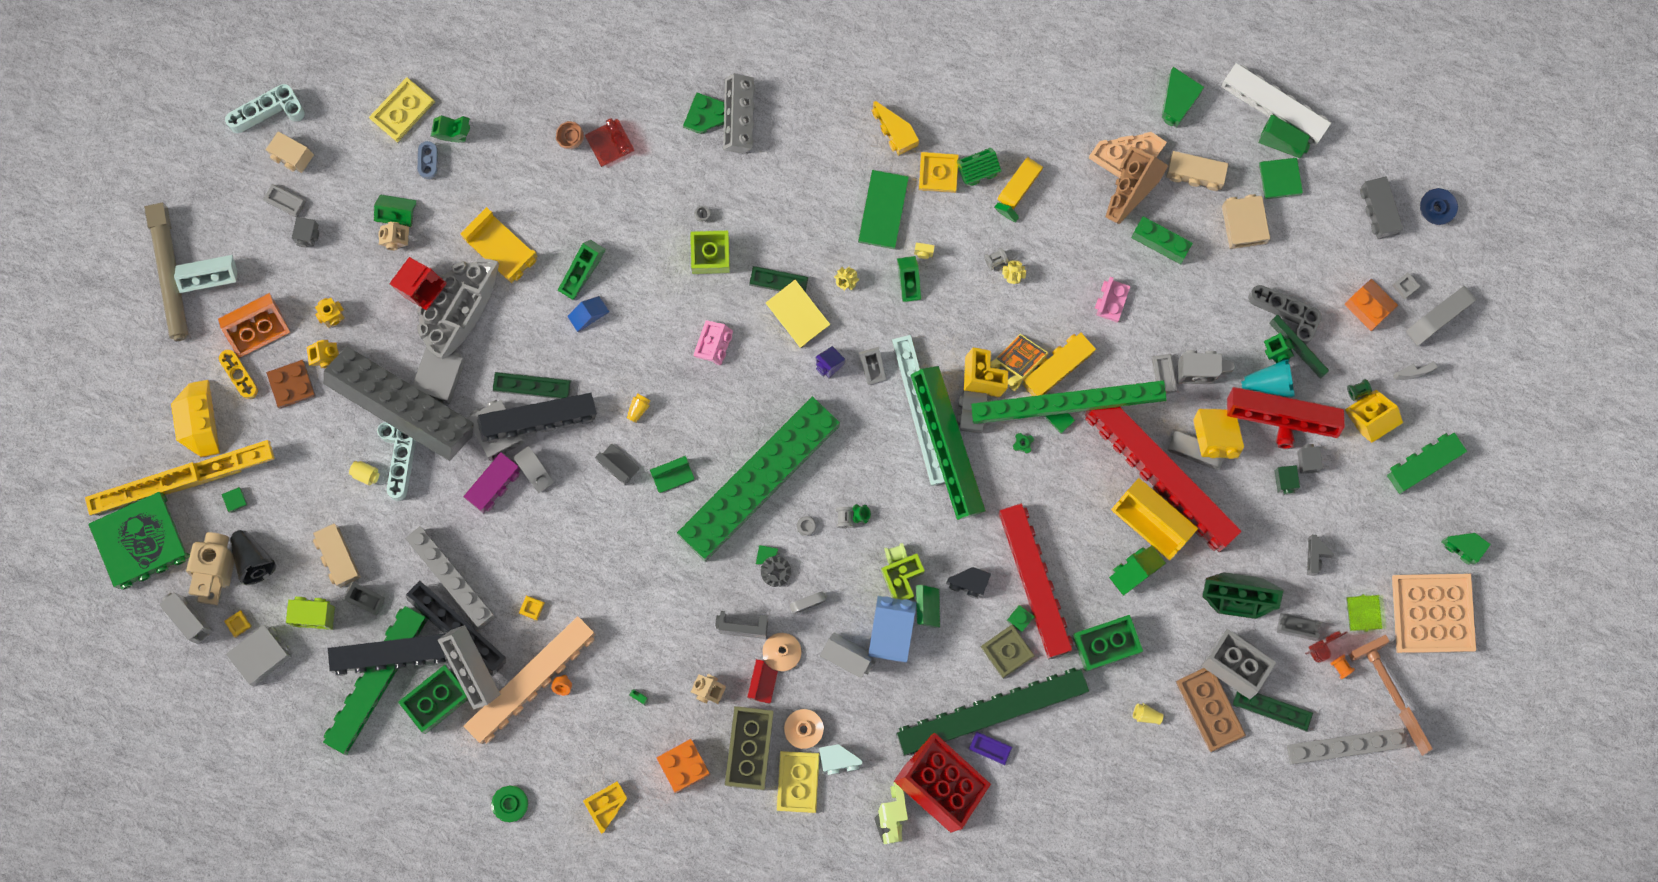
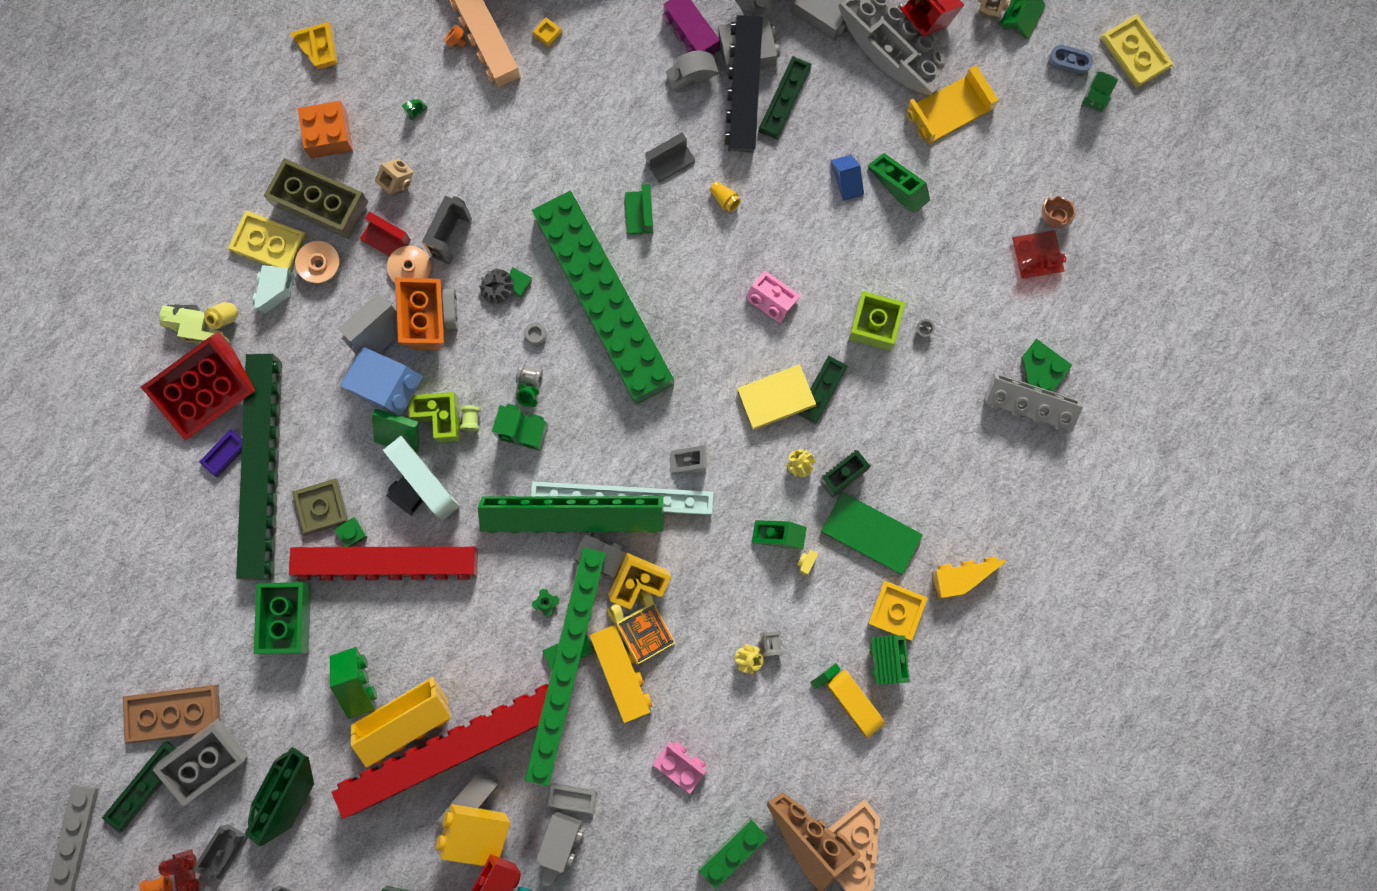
camera: 110 degrees right, 0 degrees up
(822, 619) = (419, 313): none -> orange slope
(829, 362) = (708, 412): dark purple slope -> none
(844, 241) = (844, 473): none -> dark green brick
(877, 791) = (220, 315): none -> light yellow brick
(891, 508) = (518, 429): none -> green brick
(959, 570) = (421, 478): none -> light aqua beam
(1146, 714) = (190, 638): light yellow cone -> none

